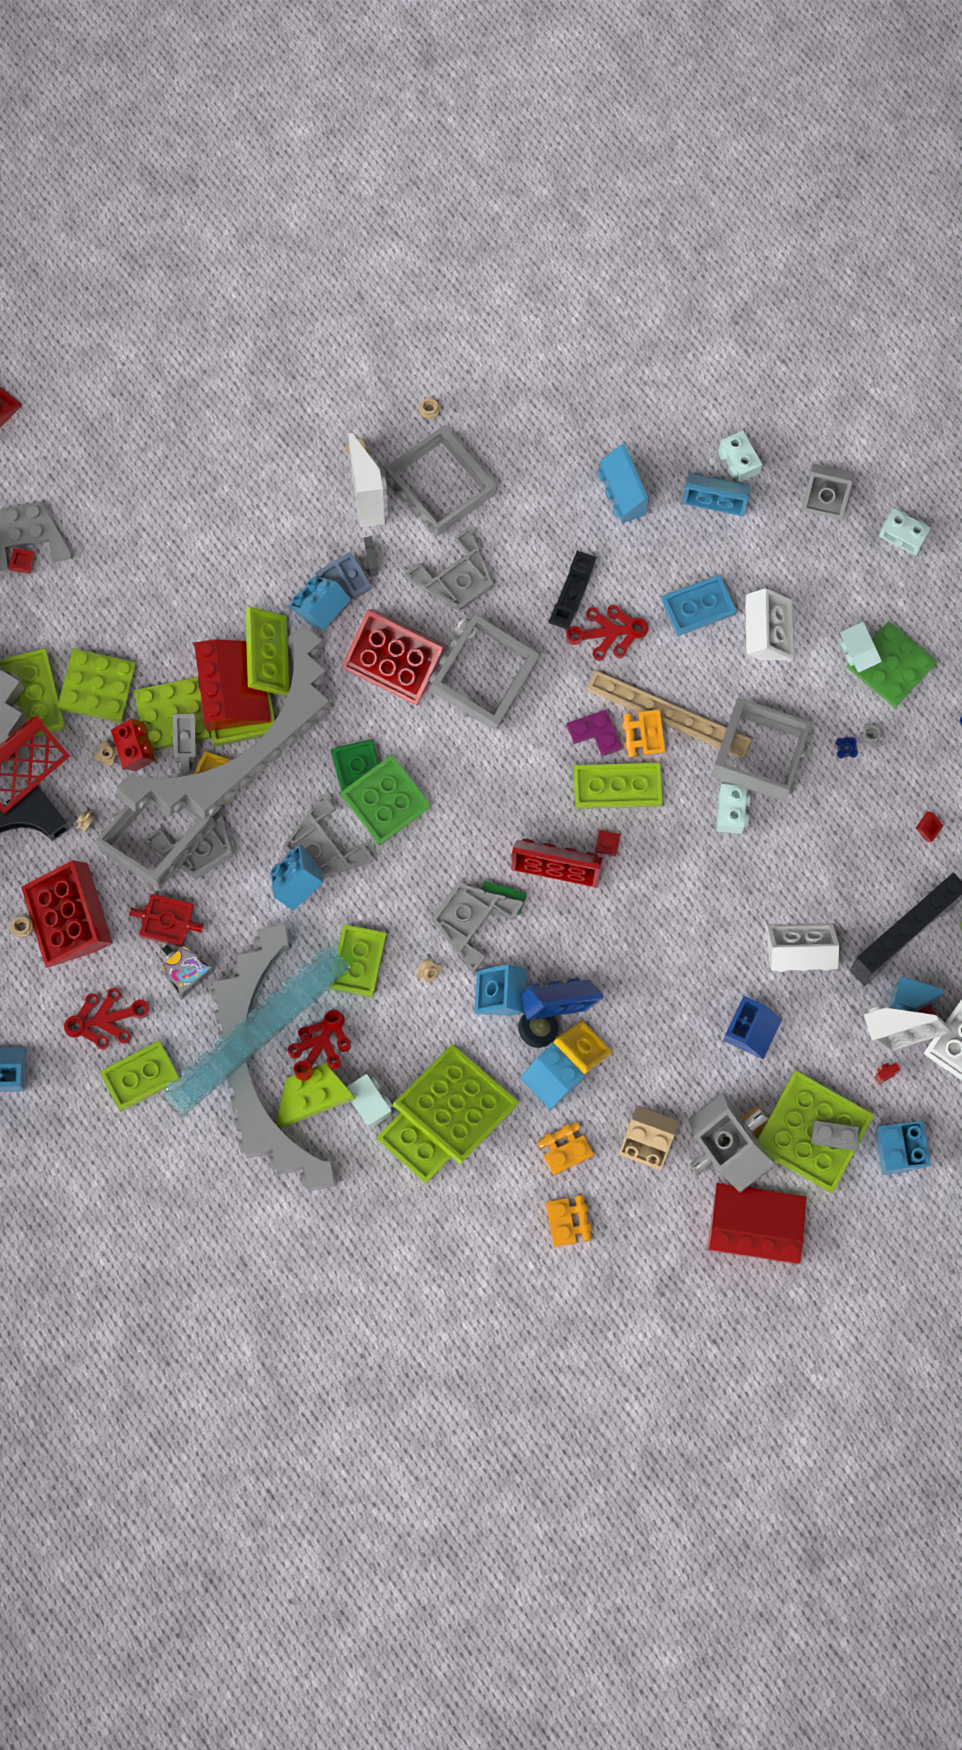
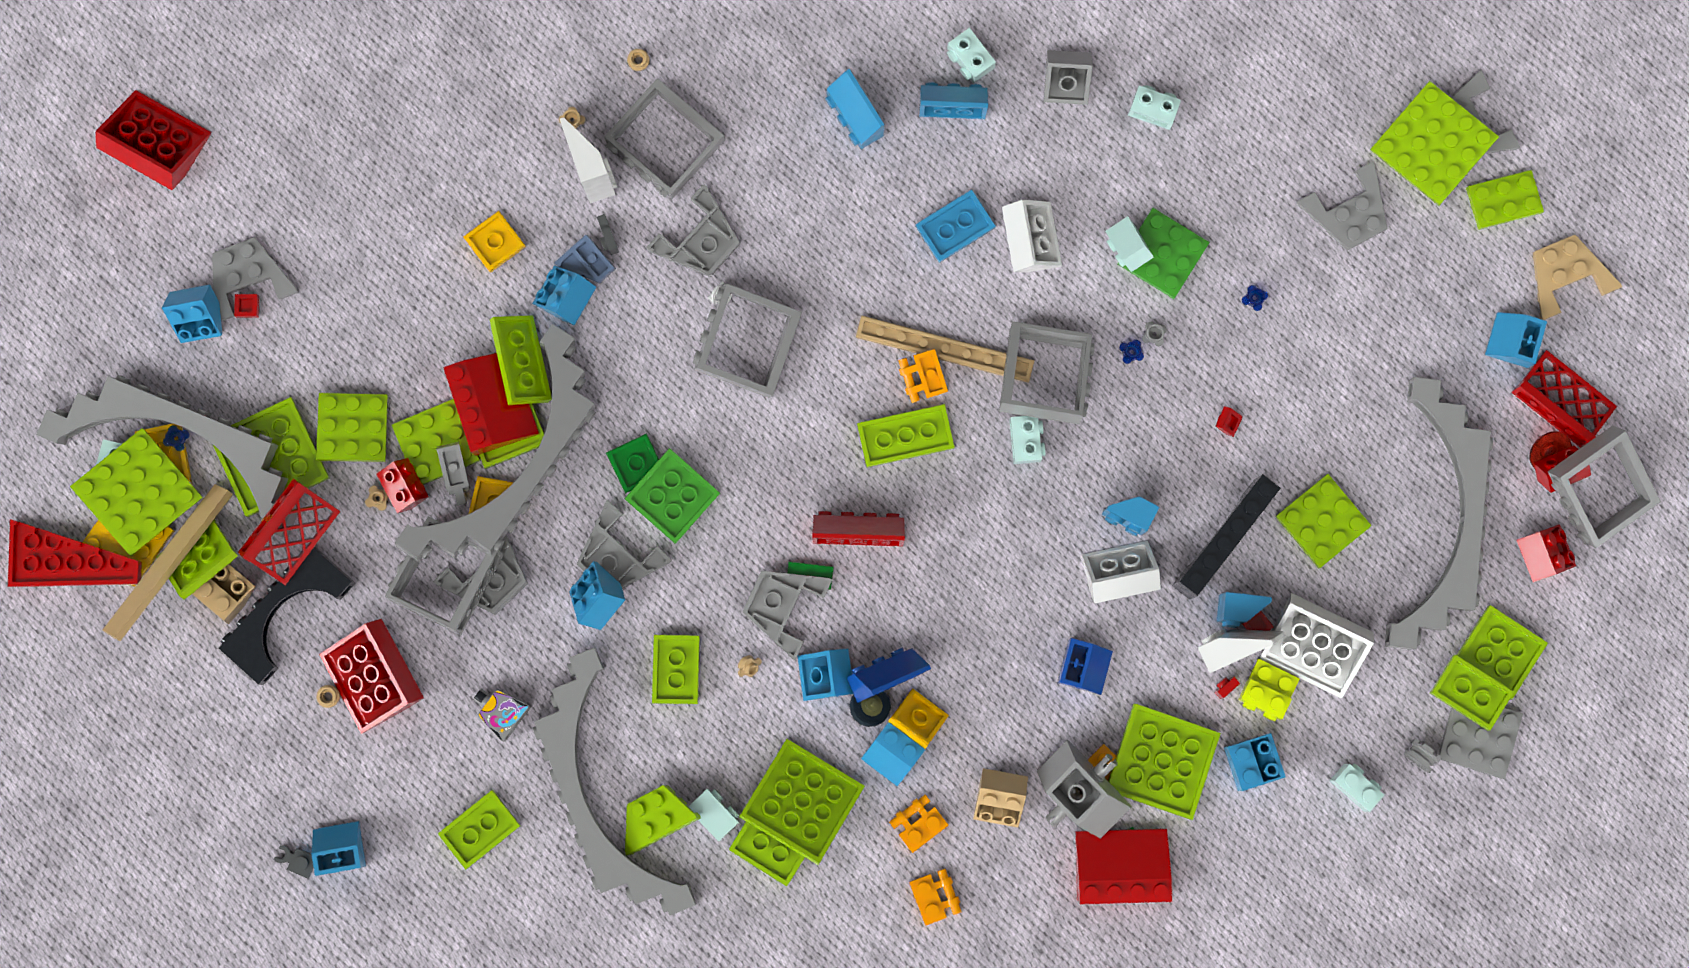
camera: 10 degrees left, 10 degrees up
(84, 821) = (369, 574): tan plate -> none
(103, 1019) = (430, 777): red plant -> none
(166, 920) = (474, 663): red plate -> none
(255, 1032) = (587, 767): clear light blue brick -> none
(263, 544) = (494, 241): none -> yellow plate
(332, 1021) = (653, 764): red plant -> none
(394, 656) = (652, 339): red slope -> none
(573, 590) = (823, 234): black slope -> none
(597, 727) = (874, 376): magenta plate -> none
(607, 843) = (906, 497): red plate -> none
(609, 631) = (869, 270): red plant -> none
(821, 892) = (1134, 514): none -> dark azure slope
(834, 1135) = (1185, 763): light grey plate -> none
(927, 1084) = (1268, 690): none -> neon yellow plate

